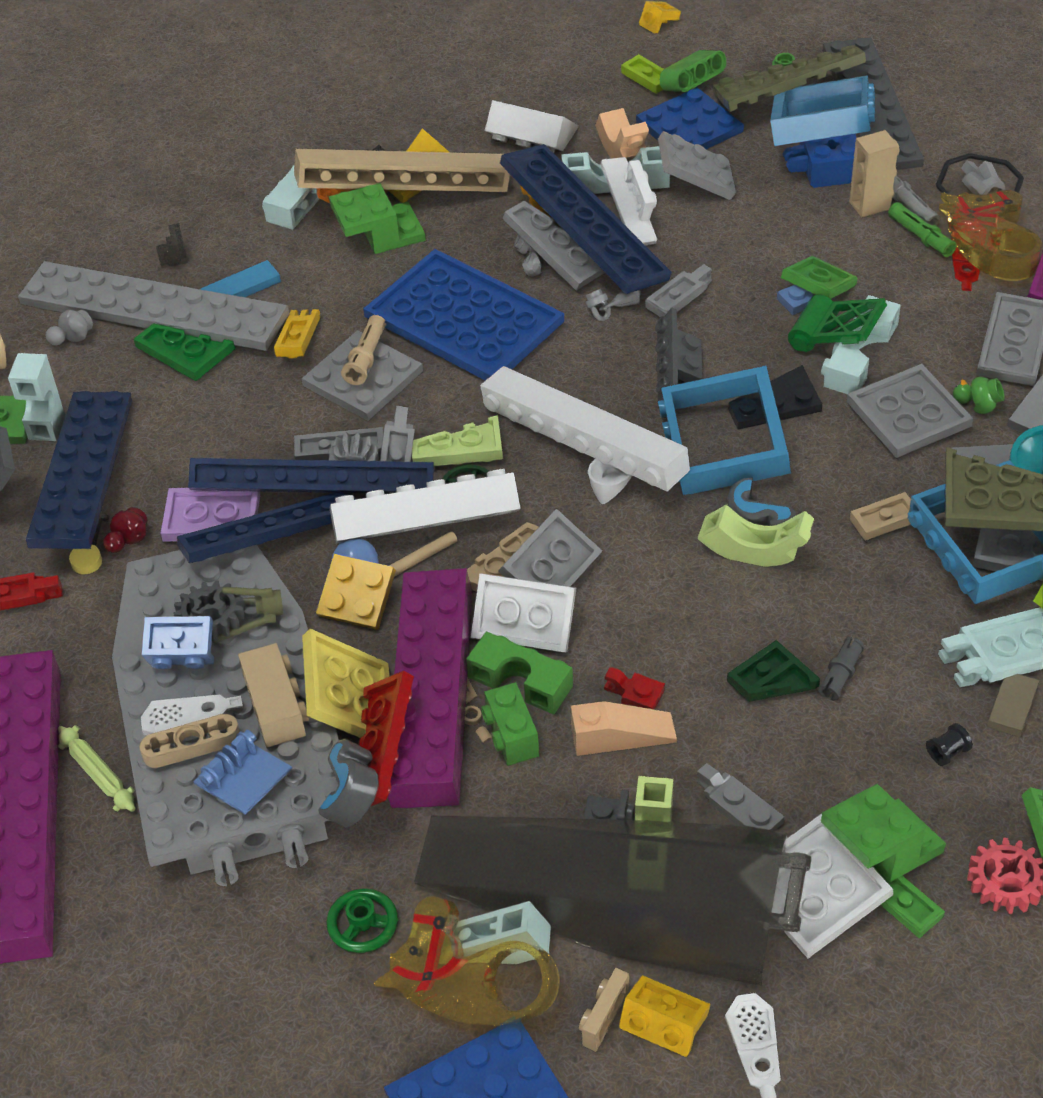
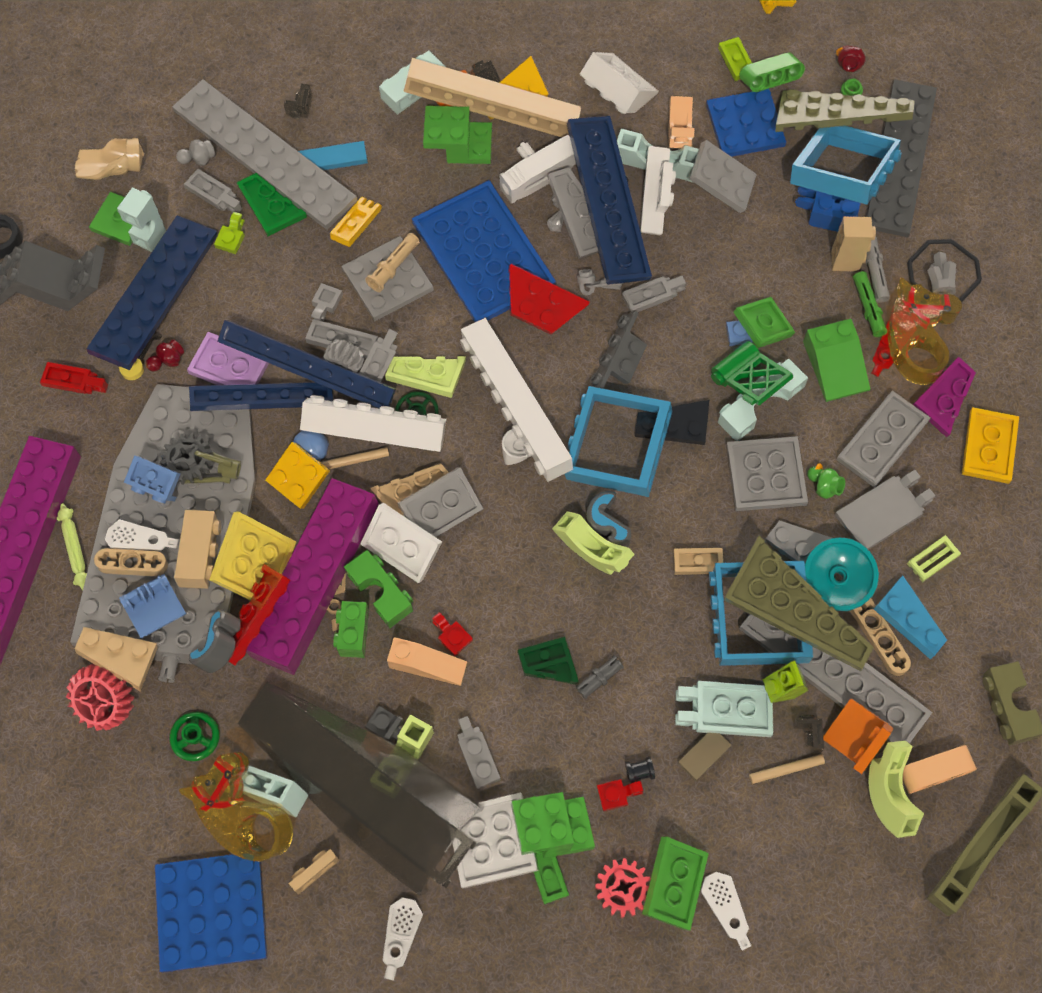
camera: 20 degrees right, 20 degrees up
(108, 358) = (212, 191): none -> light grey hinge
(151, 394) = (231, 237): none -> lime plate
(186, 919) = (93, 703): none -> coral gear
(224, 838) = (121, 655): none -> tan wing
(299, 415) = (325, 300): none -> light grey plate
(483, 223) = (533, 170): none -> white piece
(557, 336) = (540, 301): none -> red wing
(663, 1015) = (350, 890): yellow bracket -> none
(767, 39) = (850, 58): none -> dark red animal
(919, 284) = (837, 359): none -> bright green slope
(935, 784) = (615, 795): none -> red plate

